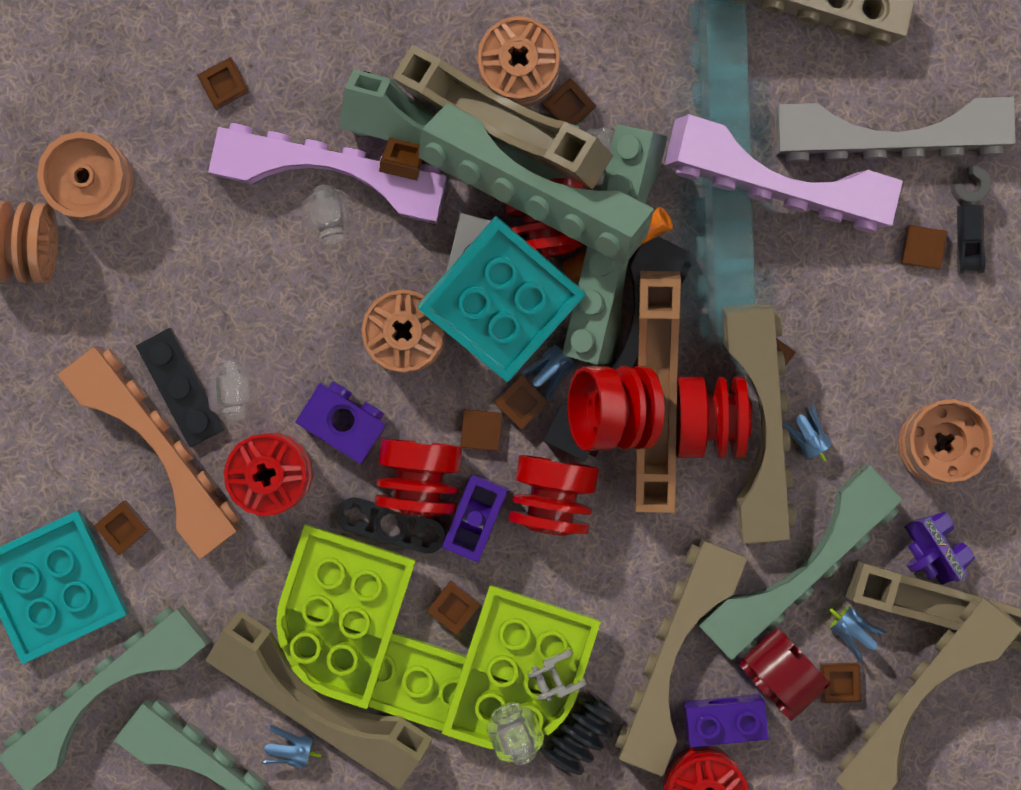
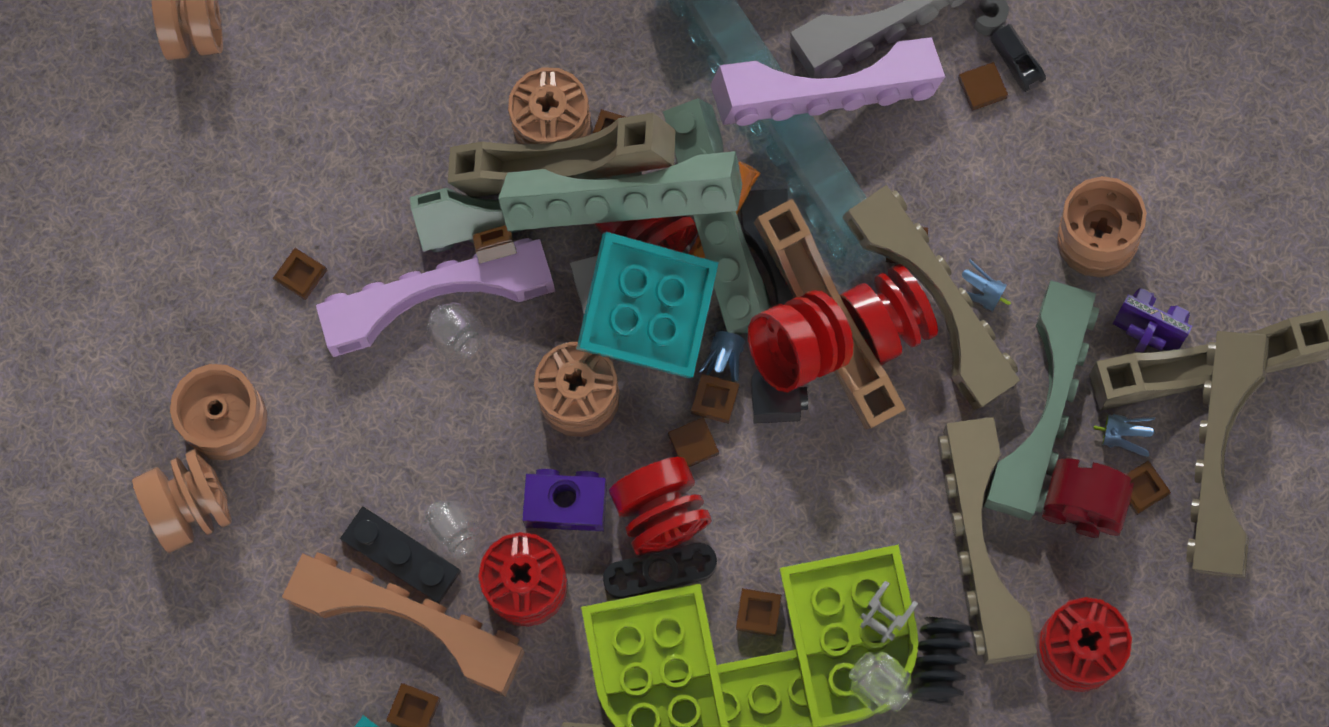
camera: 20 degrees left, 15 degrees down
(475, 517) = (732, 516): dark purple brick -> none
(553, 495) = (787, 446): red wheel -> none
(725, 720) = (1062, 573): dark purple brick -> none

